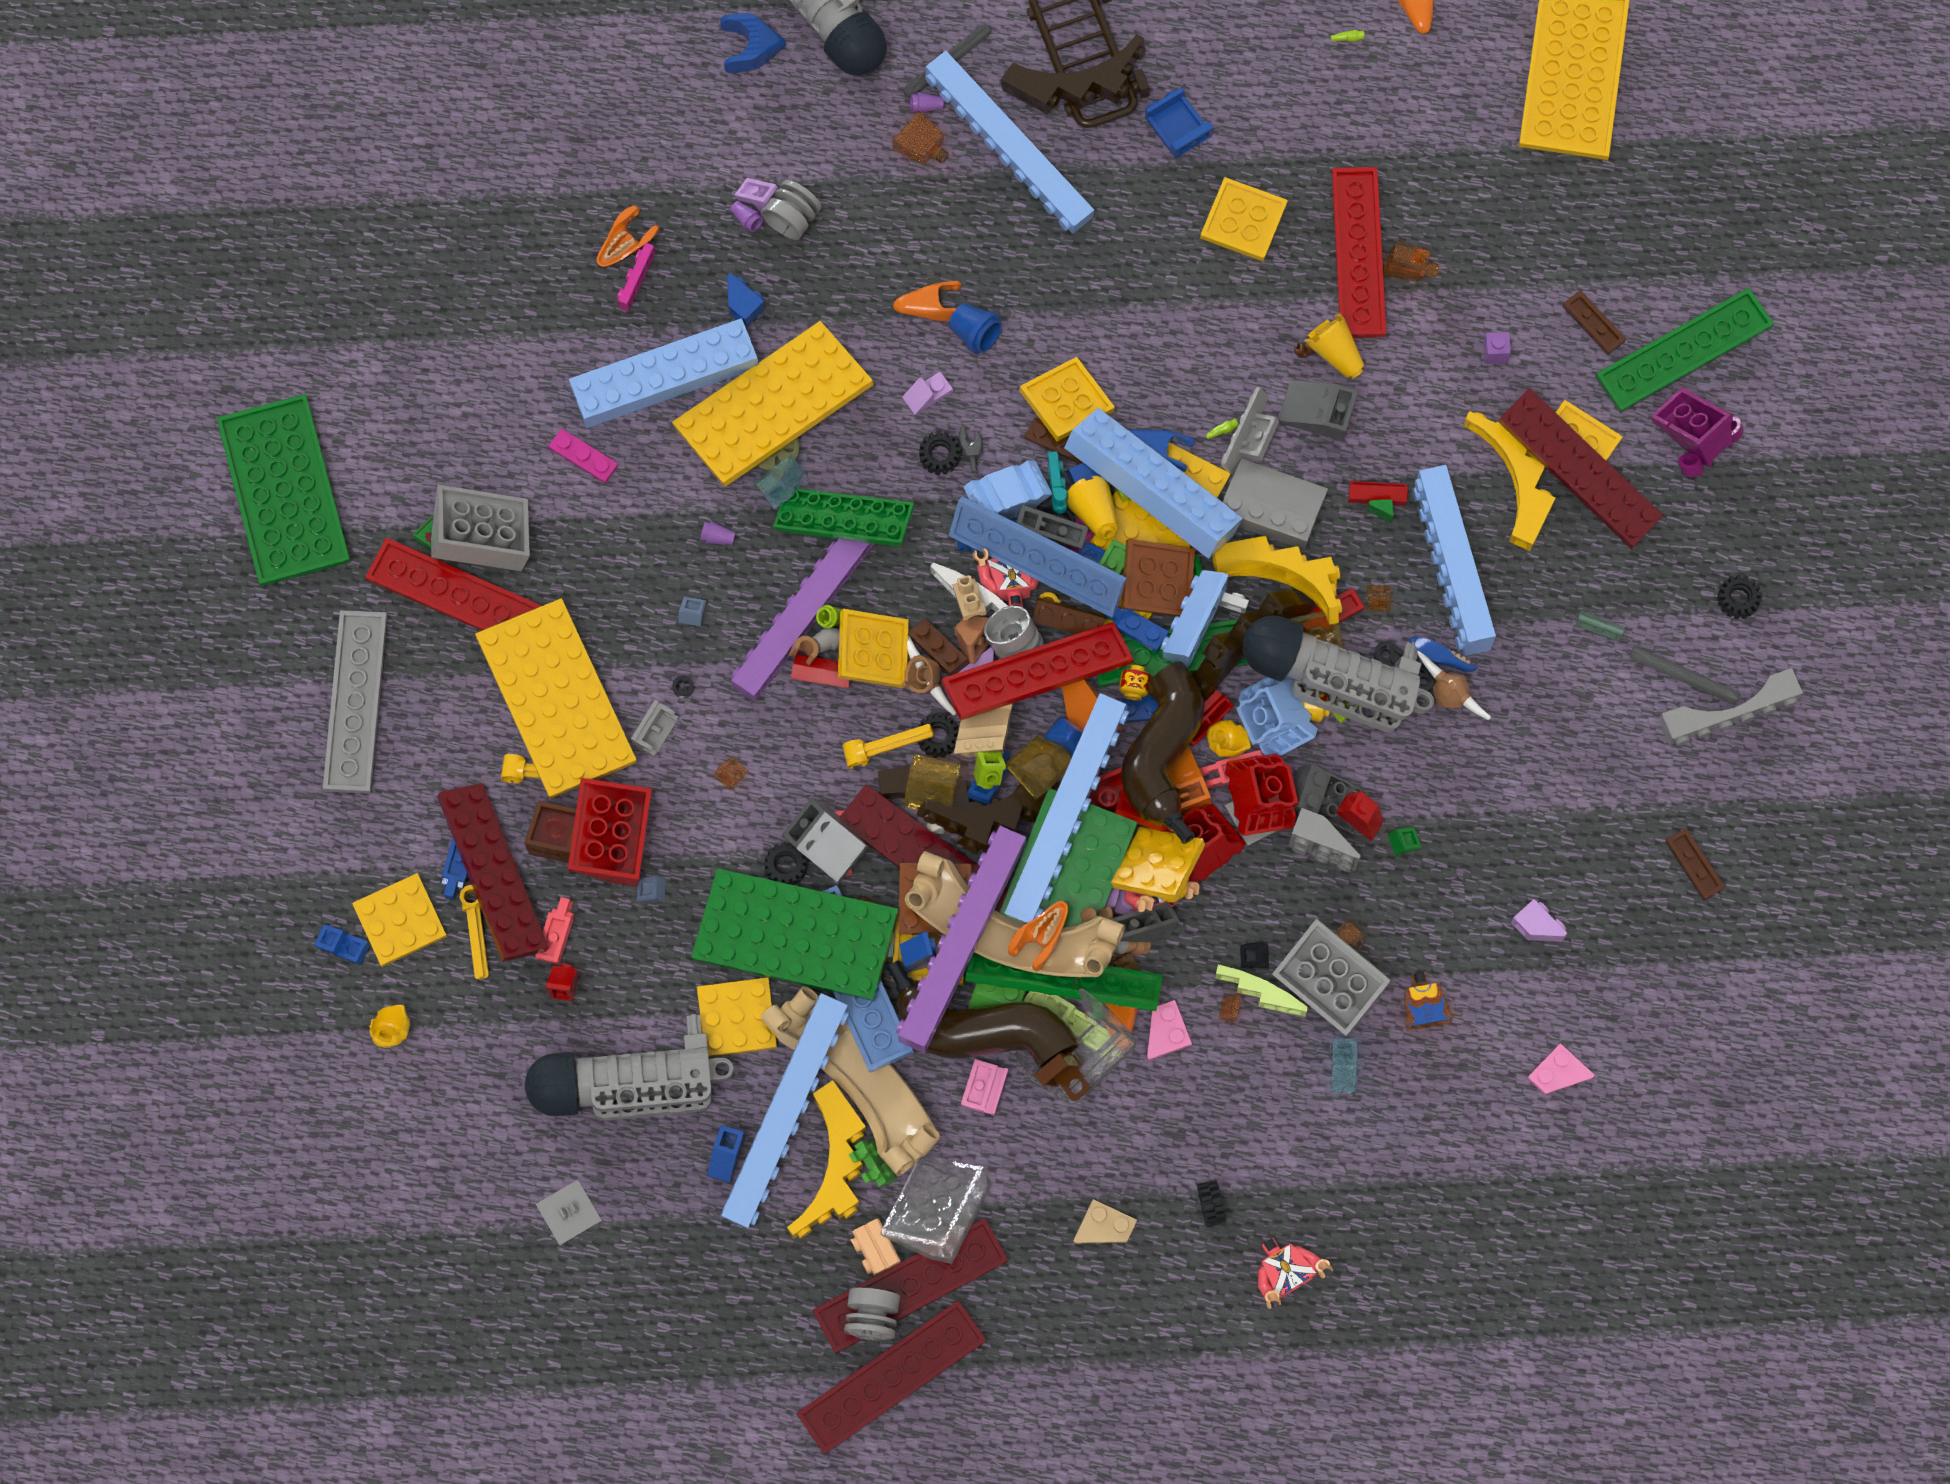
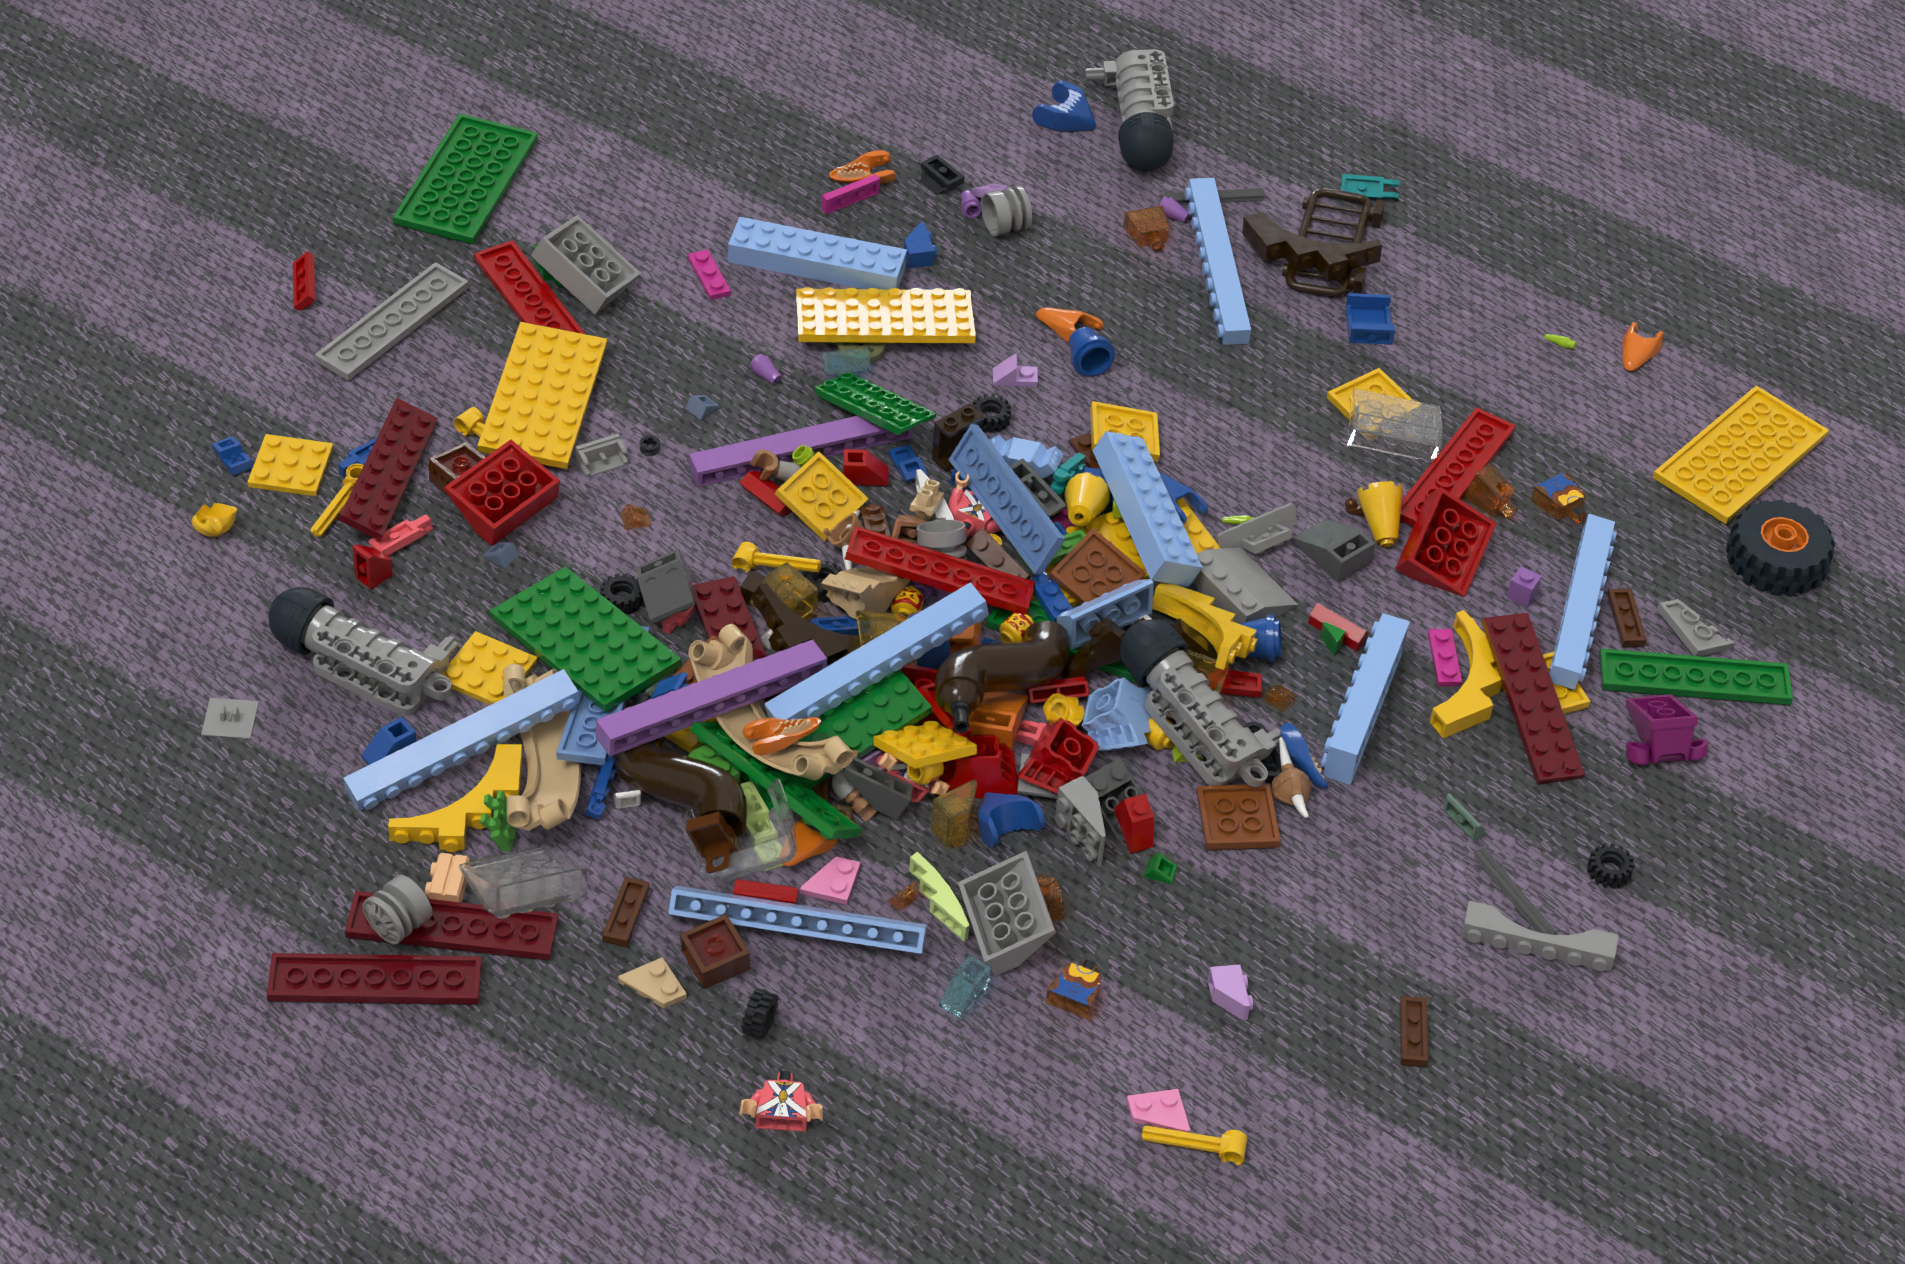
camera: 30 degrees right, 25 degrees down
(242, 711) = (304, 281): none -> red plate
(696, 200) = (939, 175): none -> black slope
(883, 592) = (864, 468): none -> red slope
(912, 558) = (906, 462): none -> blue slope
(923, 1078) = (600, 789): none -> blue hinge
(941, 508) = (949, 432): none -> dark brown panel
(946, 1066) = (627, 799): none -> white slope
(970, 450) = (1018, 426): dark grey hand -> none
(984, 1087) = (643, 828): bright pink plate -> none
(989, 773) = (845, 603): lime brick -> none
(1024, 713) = (907, 601): none -> yellow head
(1032, 1176) = (625, 911): none -> reddish brown plate
(1126, 1083) = (766, 891): none -> red piece
(1133, 1169) = (715, 951): none -> piece
(1172, 1093) = (799, 919): none -> light blue brick
(1223, 909) = (954, 815): none -> clear yellow slope
(1251, 874) = (1005, 813): none -> blue animal
(1254, 955) = (957, 871): black slope -> none
(1281, 235) = (1395, 425): none -> clear slope
(1331, 545) = (1269, 638): none -> blue piece
(1408, 346) = (1446, 543): none -> red slope
(1429, 748) = (1238, 817): none -> dark orange plate
(1464, 225) = (1560, 497): none -> clear orange torso
(1479, 465) = (1444, 657): none -> dark pink plate
(1553, 333) = (1582, 602): none -> light blue brick
(1631, 1071) = (1230, 1146): none -> yellow axle
(1657, 302) = (1693, 633): none -> light grey wing
(1671, 164) = (1780, 547): none -> black wheel

